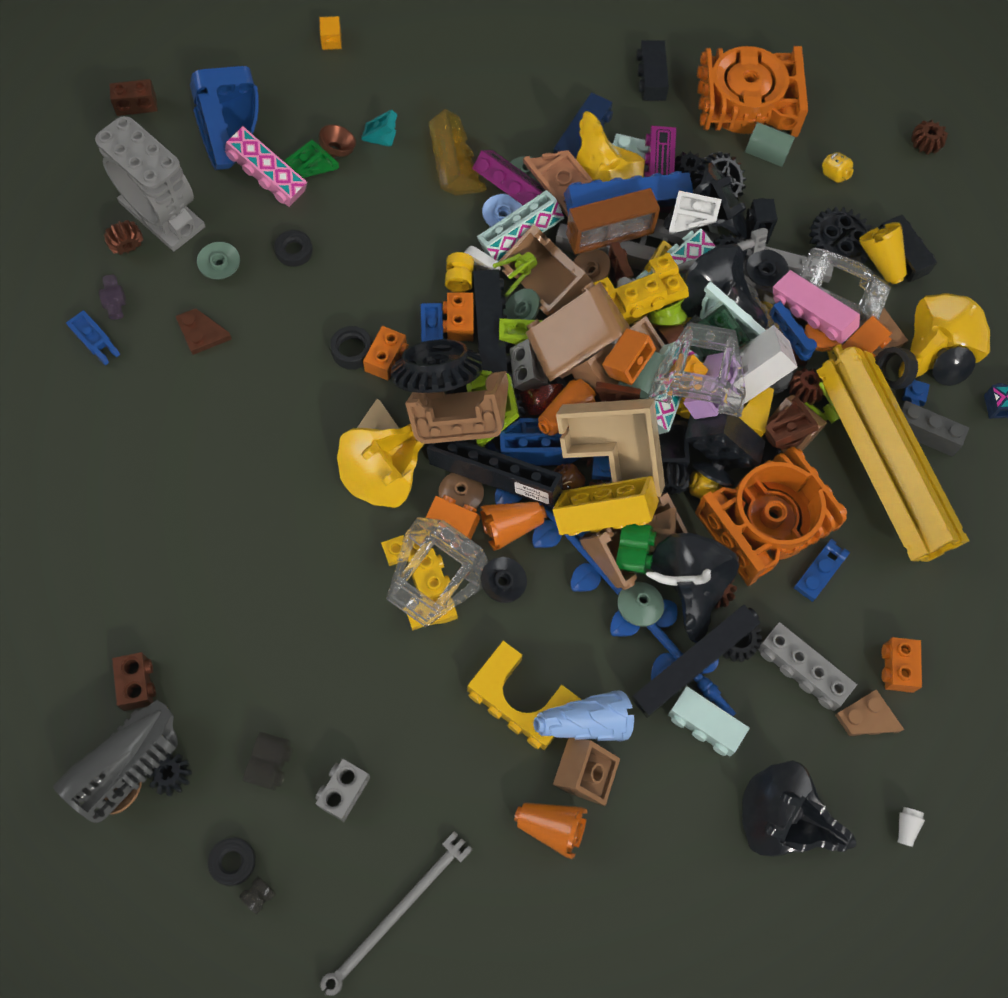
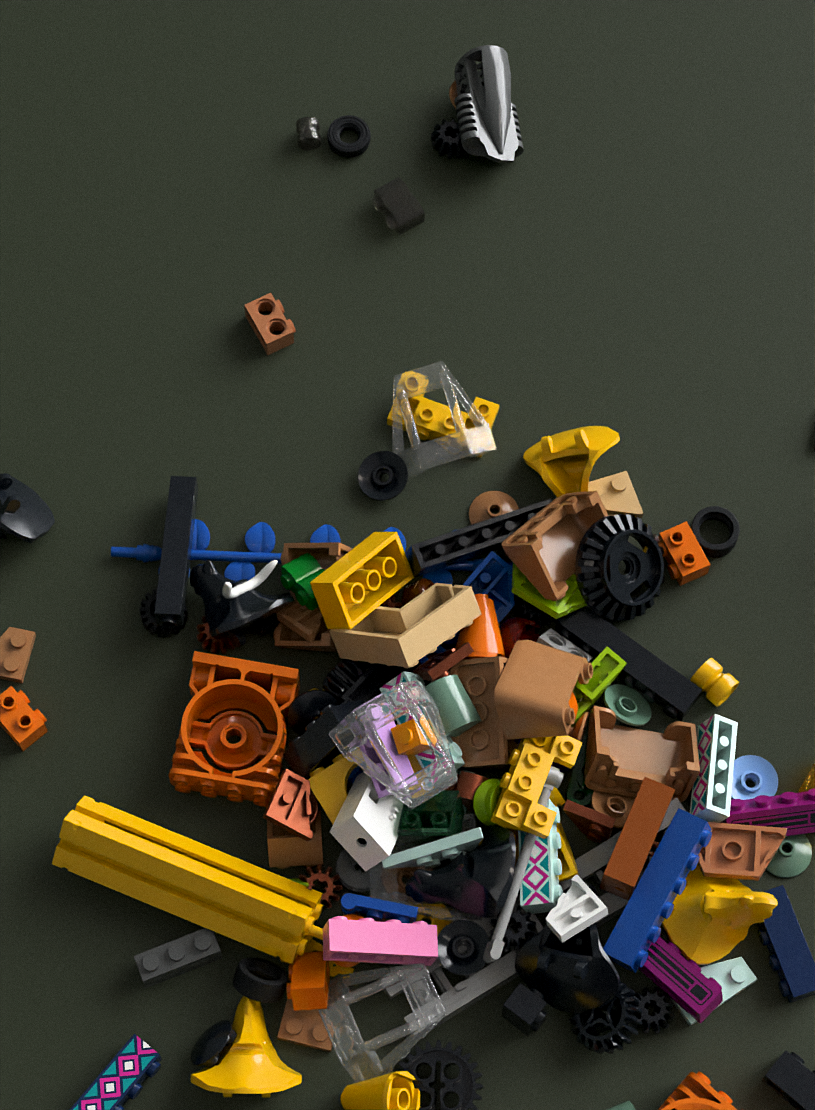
camera: 135 degrees right, 0 degrees up
(127, 683) = (550, 157): copper brick -> none
(348, 792) = (326, 238): light grey brick -> none
(431, 321) = (680, 617): blue plate -> none
(451, 853) = (213, 277): light grey hinge -> none
(459, 316) = (667, 643): orange brick -> none
(460, 769) = (266, 324): none -> nougat brick
(461, 518) = (471, 478): orange brick -> none
(481, 260) = (701, 714): white beam -> none
(488, 689) = (304, 393): yellow arch -> none
(510, 521) = (427, 513): orange cone -> none
(523, 265) = (669, 741): lime plant -> none
(553, 825) = (161, 350): orange cone -> none
(587, 771) = (177, 409): medium nougat slope -> none
(596, 717) = (207, 435): light blue cone -> none
(629, 356) = (469, 690): orange brick -> none
(637, 612) = (248, 557): sand green dish -> none
(708, 722) = (125, 527): light aqua brick -> none
(806, 667) = (90, 641): light grey brick -> none
(821, 571) = (152, 736): blue plate -> none
(916, 393) = (221, 988): blue plate -> none

